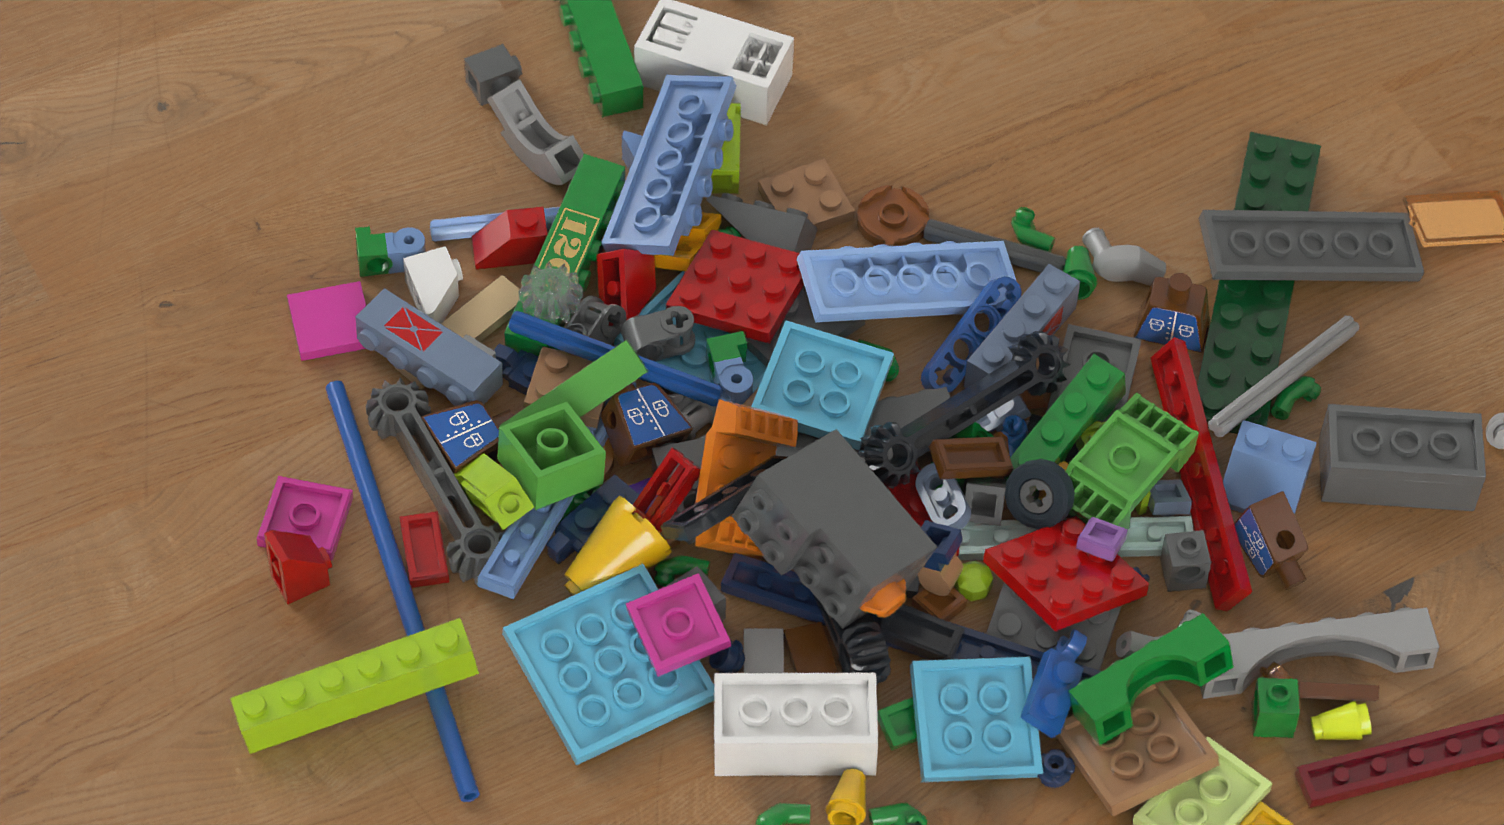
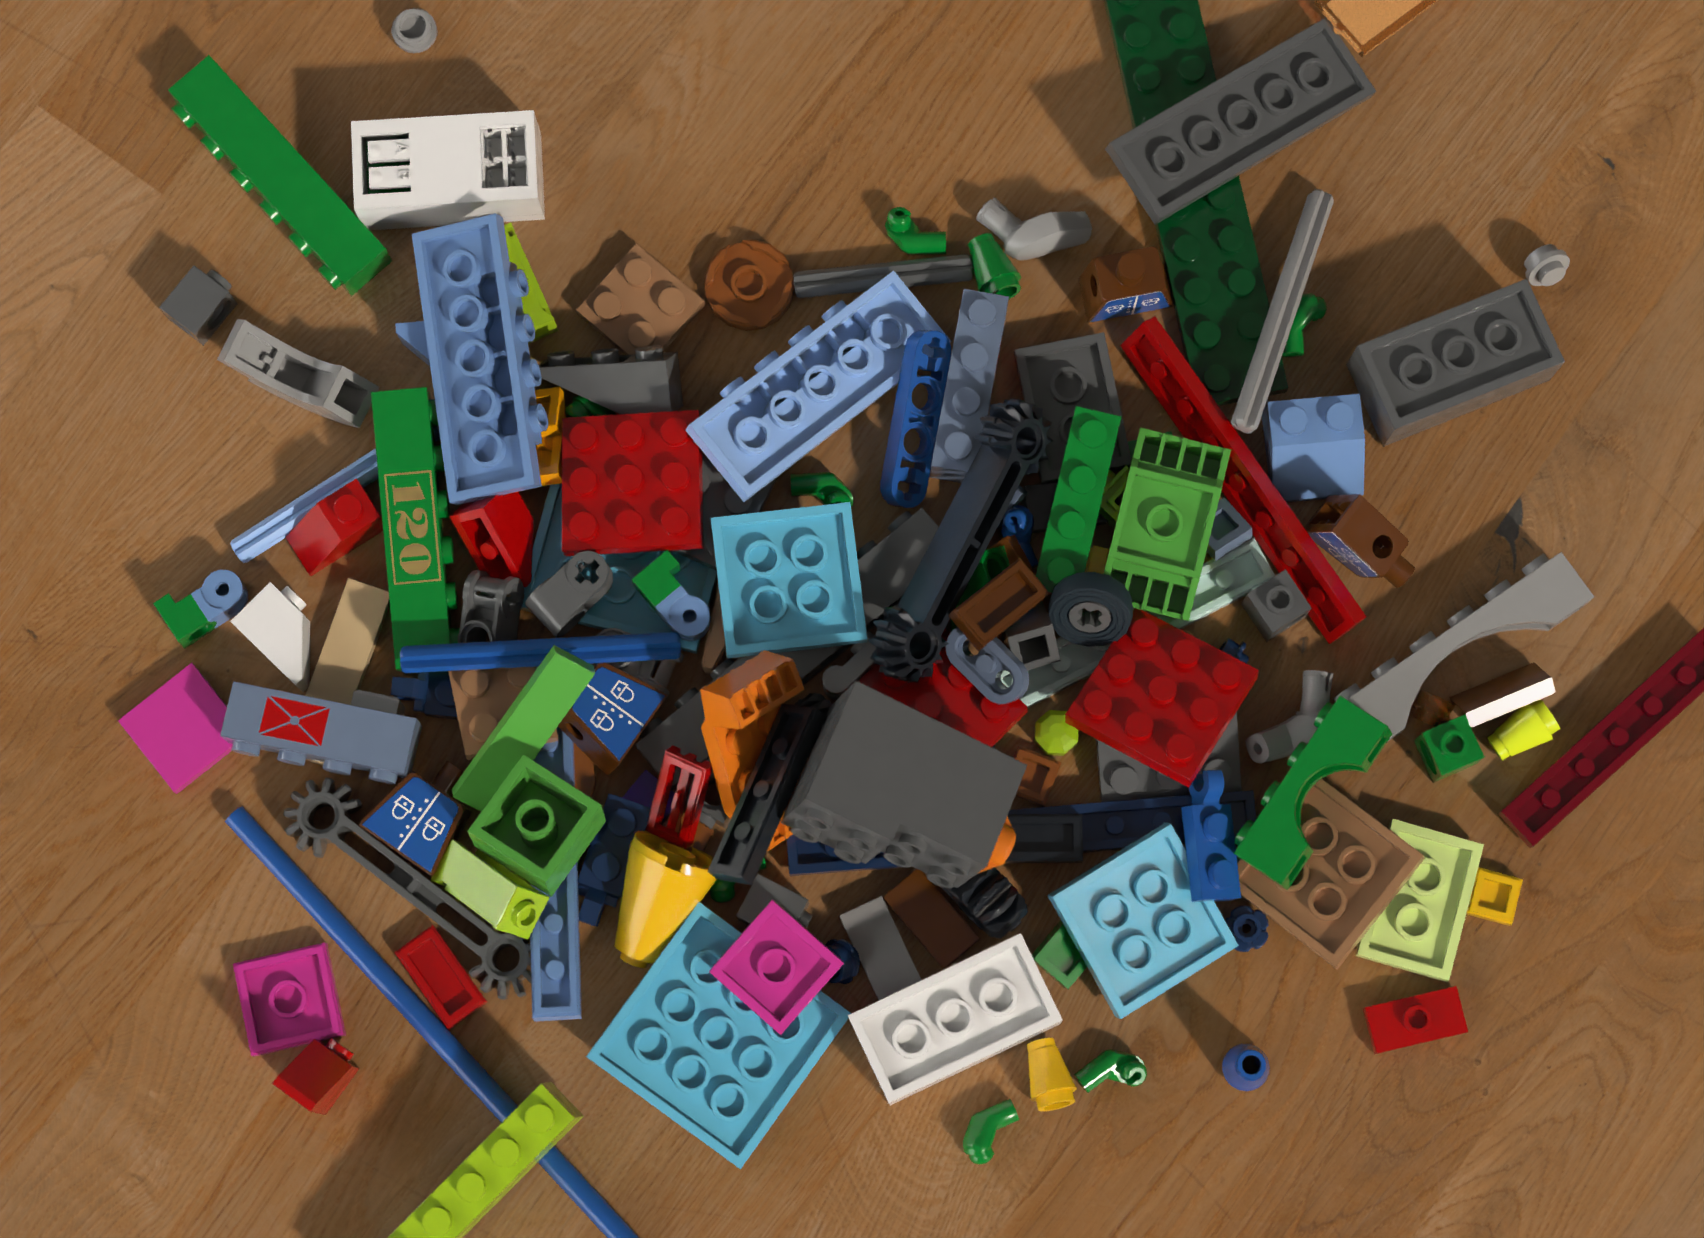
camera: 20 degrees left, 25 degrees up
(550, 293) = (413, 610): clear gear -> none
(943, 566) = (1021, 741): leg -> none
(1101, 539) = (1184, 639): medium lavender tile -> none

